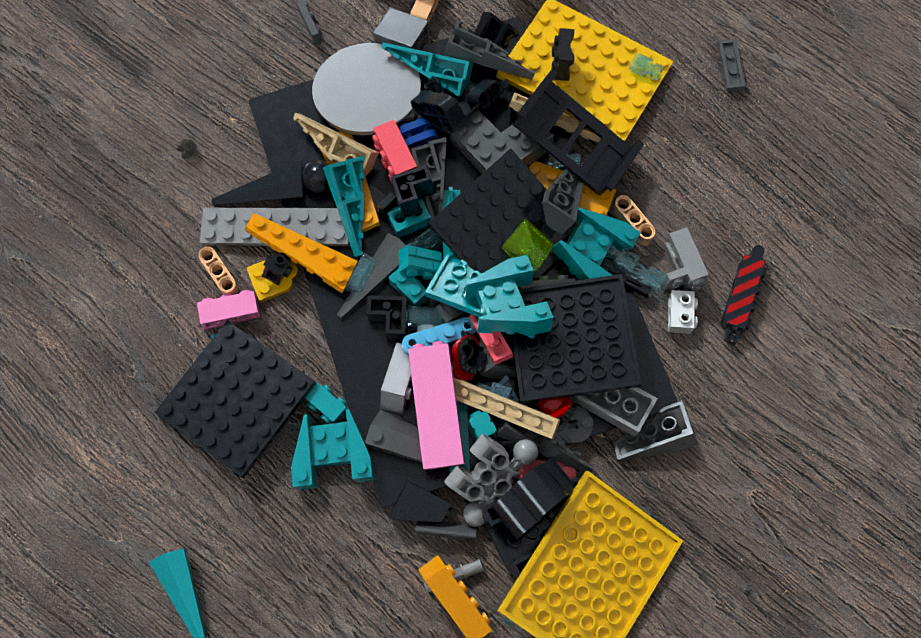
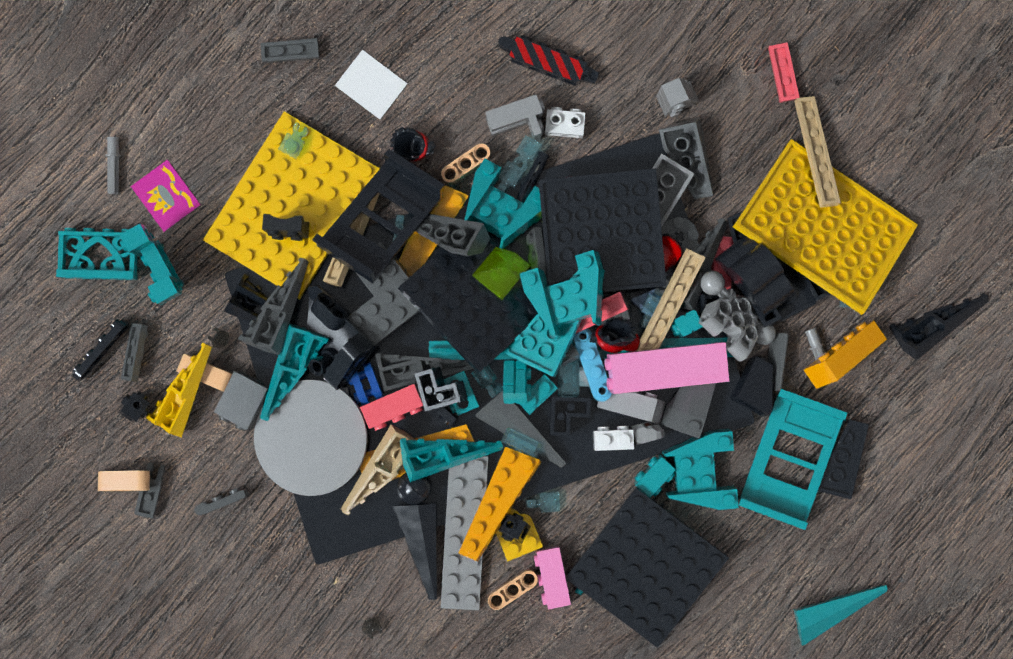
camera: 85 degrees left, 15 degrees up
(302, 531) = (804, 419): none -> teal piece
(303, 304) = (547, 502): none -> clear light blue plate
(340, 603) = (845, 461): none -> black wing
(363, 361) = (613, 439): none -> white brick
(371, 394) = (647, 432): none -> light grey rock
(458, 12) = (220, 339): none -> clear smoke plate
(649, 168) = (411, 144): none -> black hair
(670, 566) = (817, 152): none -> tan plate
(705, 137) = (371, 84): none -> white sticker
(718, 416) = (676, 97): none -> light grey wedge
(753, 532) = (783, 72): none -> coral plate

